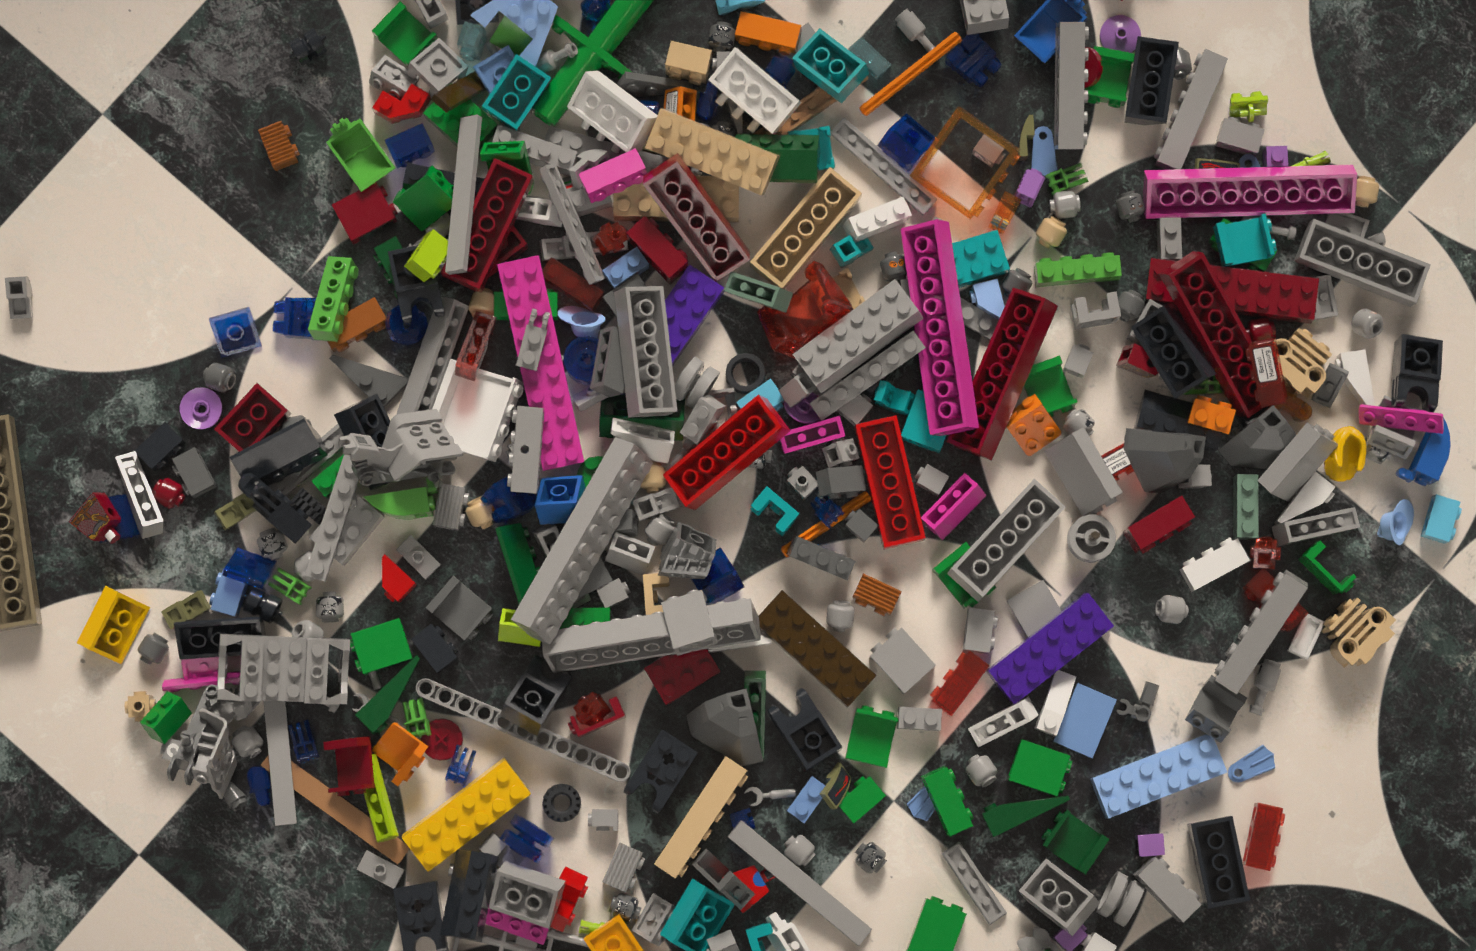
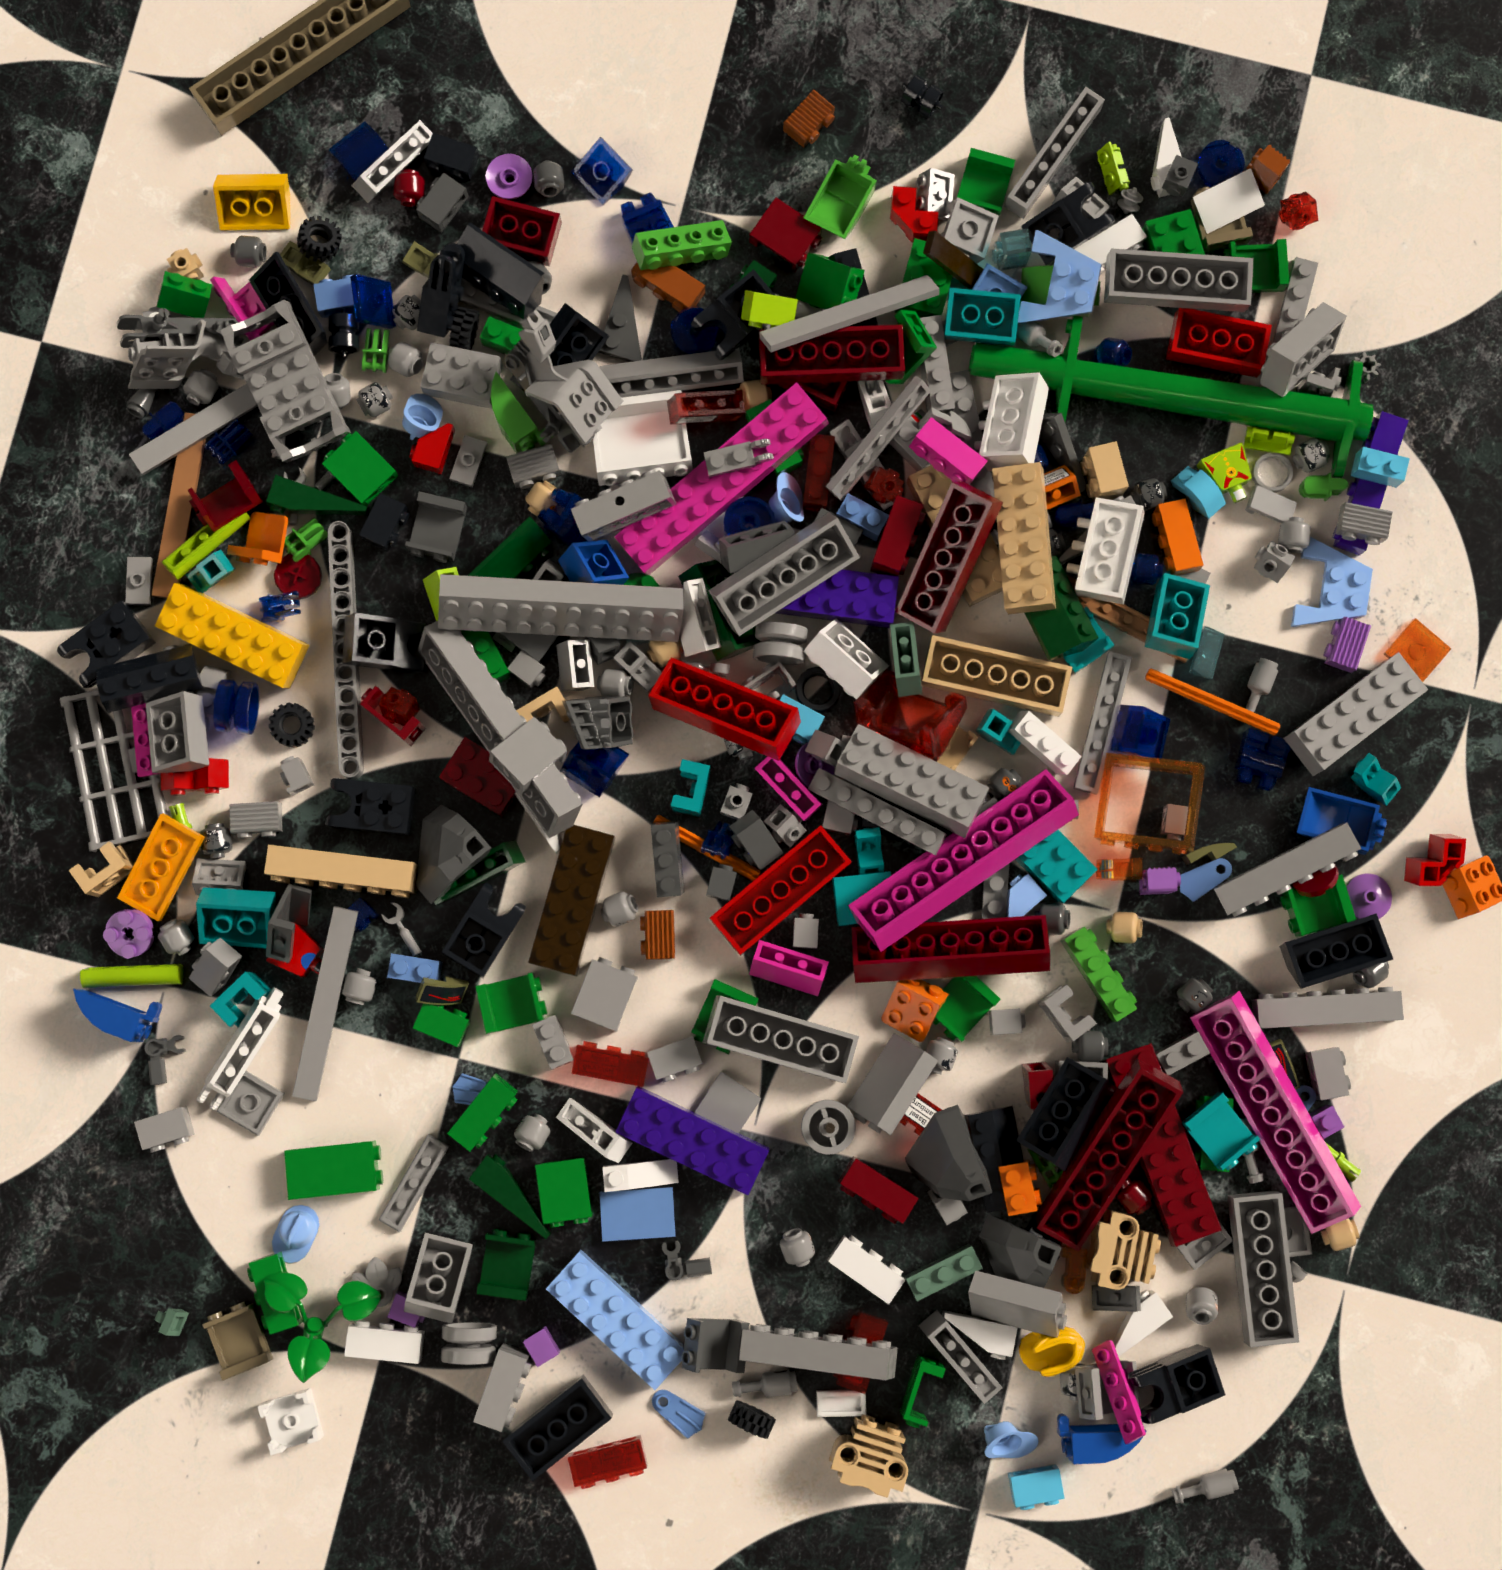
camera: 60 degrees right, 0 degrees up
(97, 518) = (348, 132): torso -> none
(169, 577) = (321, 228): none -> black tyre
(333, 522) = (452, 357): light grey plate -> none
(363, 575) = (421, 415): none -> light blue piece
(405, 806) = (210, 571): none -> teal brick
(409, 146) = (875, 243): clear blue brick -> none
(702, 419) = (747, 667): light grey brick -> none
(734, 338) = (845, 658): none -> white brick
(870, 857) = (387, 1063): dark grey head -> none
(1065, 179) = (1187, 914): bright green arm -> none
(1065, 204) = (1161, 927): light grey head -> none
(1248, 106) = (1364, 1066): lime hips -> none
(1265, 553) = (905, 1317): clear red brick -> none
(1267, 372) = (1093, 1224): clear red brick -> none
(1285, 709) = (751, 1419): none -> black tyre

